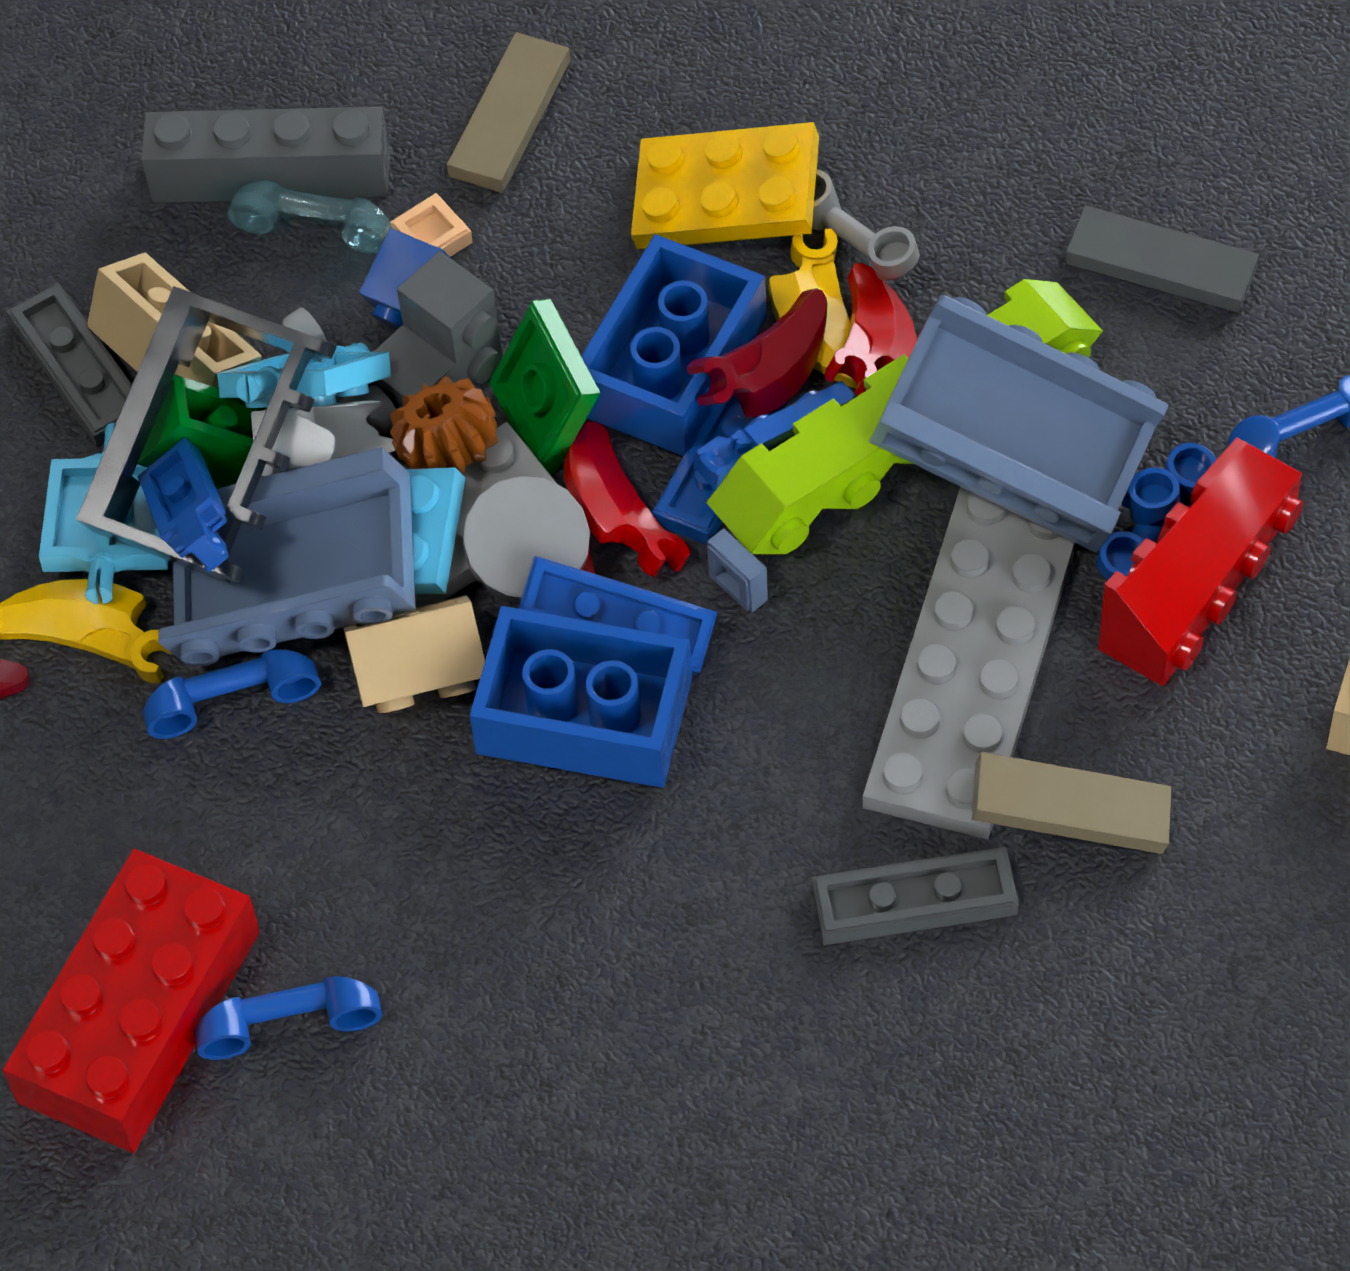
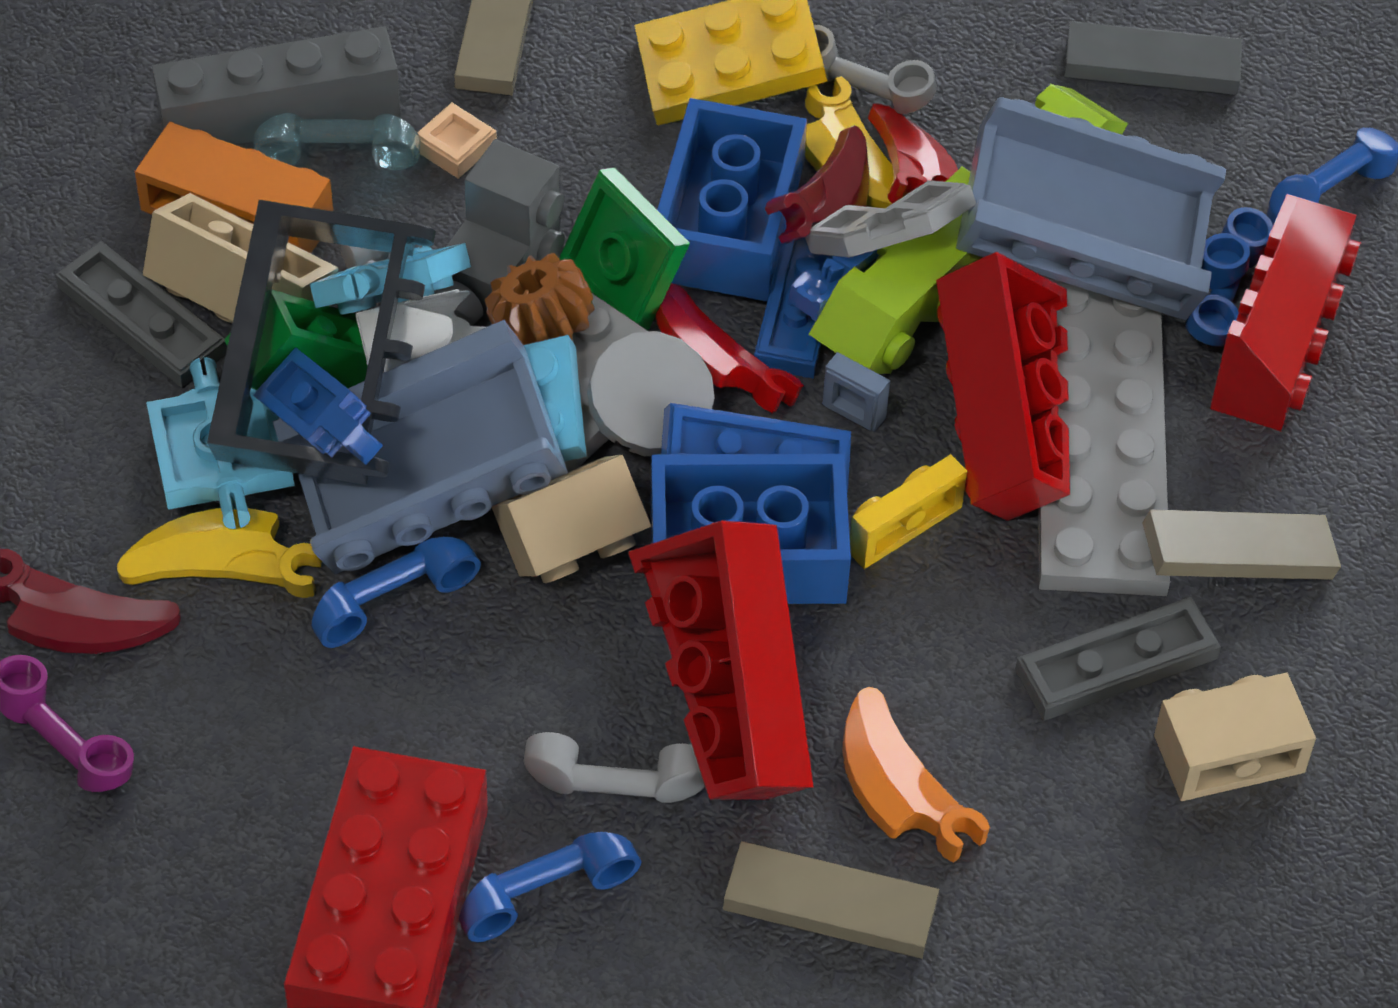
camera: 20 degrees left, 5 degrees down
(197, 248) = (225, 176): none -> orange brick
(394, 264) = (441, 178): blue brick -> none
(446, 932) = (554, 758): none -> light grey bar
(516, 829) = (732, 655): none -> red wedge
(555, 1086) = (831, 899): none -> dark tan tile
(651, 979) = (895, 783): none -> orange piece
(748, 705) = (907, 511): none -> yellow plate
(783, 406) = (865, 229): none -> light grey tile
(884, 589) = (1007, 383): none -> red wedge
(998, 1000) = (1234, 735): none -> tan brick

